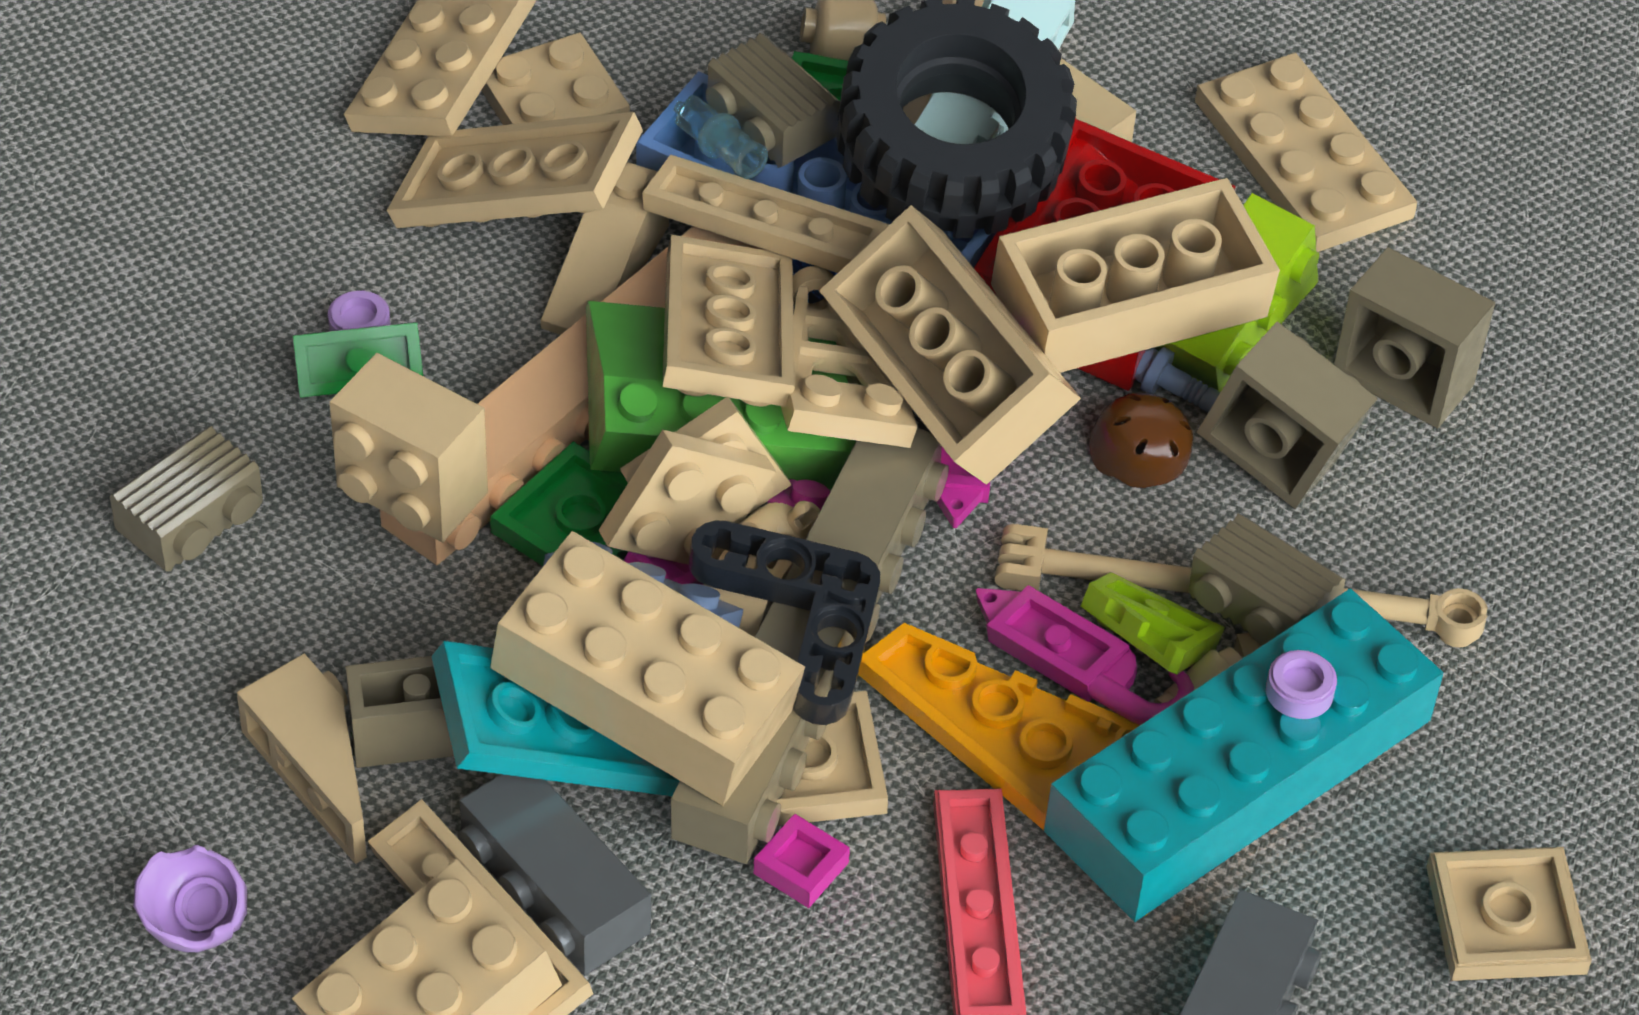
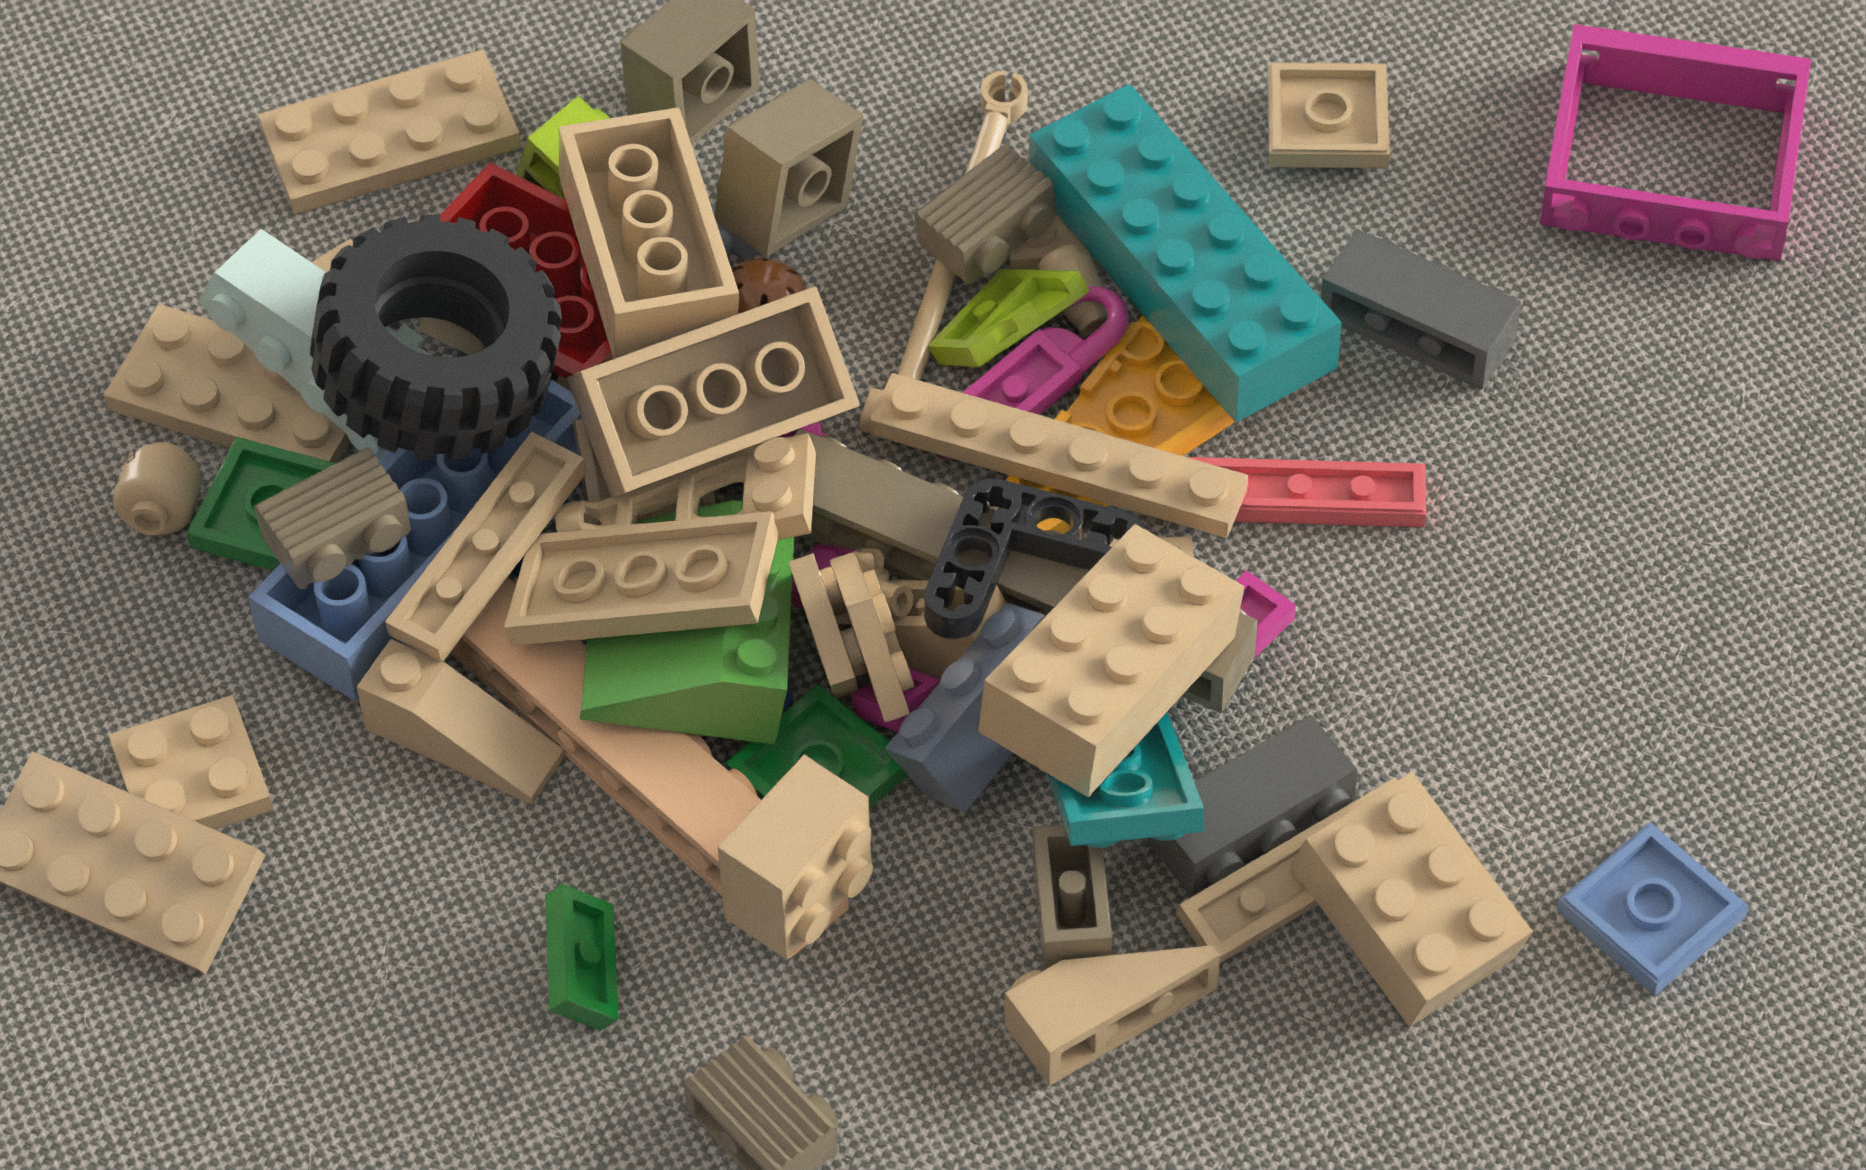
camera: 80 degrees left, 5 degrees up
(190, 899) = (1283, 1106): lavender hair -> none
(358, 310) = (506, 966): lavender tile -> none
(516, 171) = (355, 782): tan plate -> none
(721, 137) = (374, 570): clear light blue axle -> none
(967, 677) = (1059, 455): none -> tan plate
(1301, 684) = (1155, 174): lavender tile -> none

